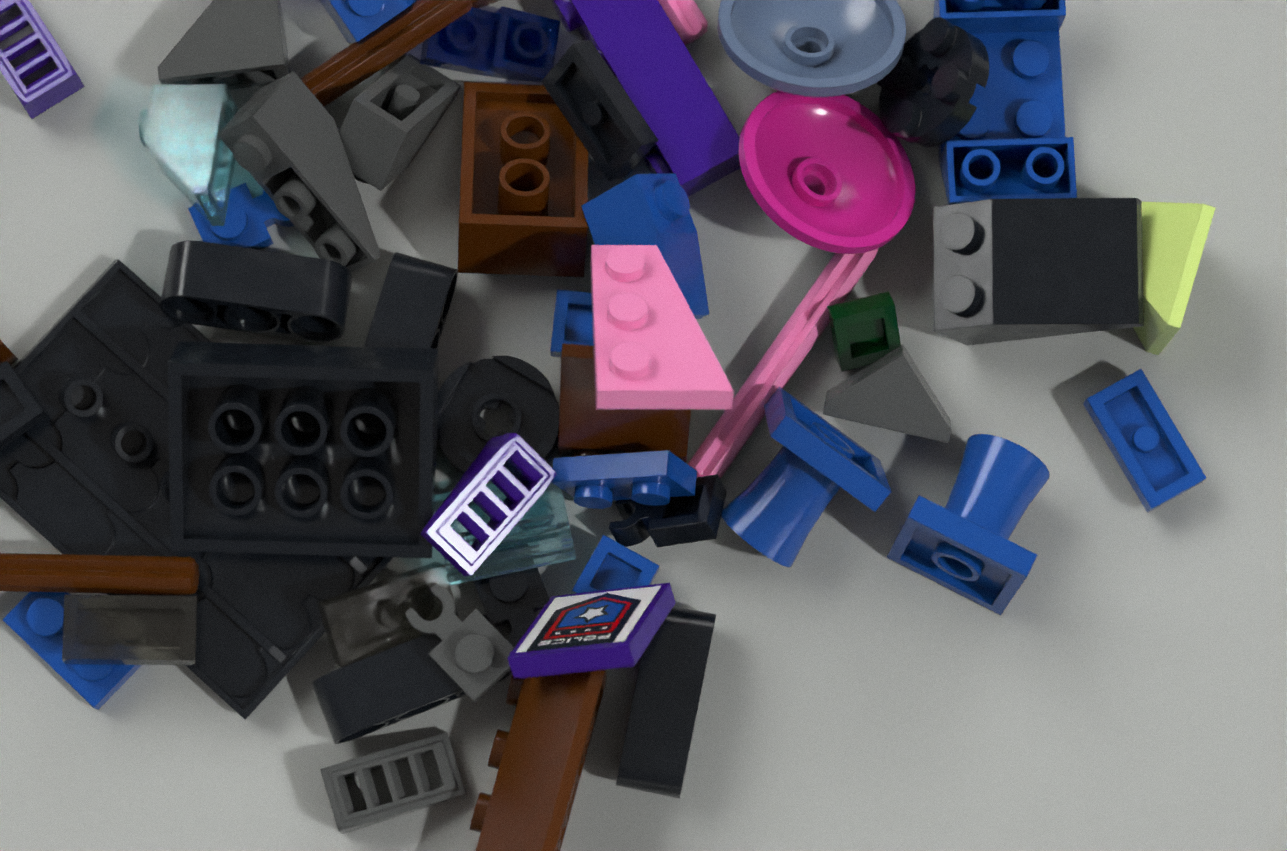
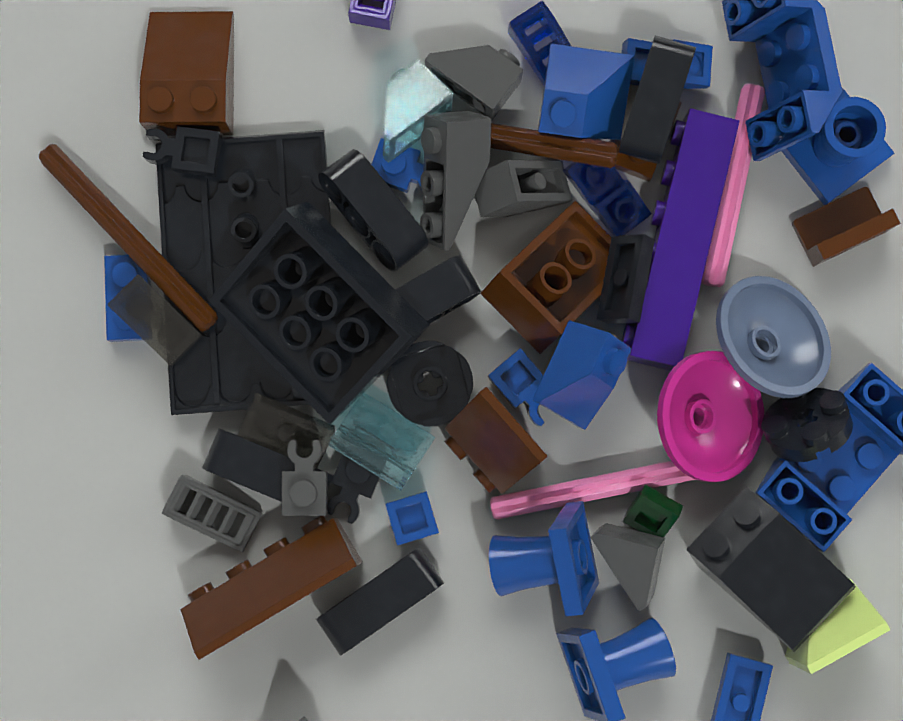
camera: 45 degrees right, 5 degrees up
(517, 473) = (402, 435): slope -> none
(591, 631) = (370, 538): tile -> none
(638, 476) = (471, 485): blue plate -> none
(647, 337) = (531, 425): bright pink wing -> none
(678, 522) = (471, 517): black plate -> none

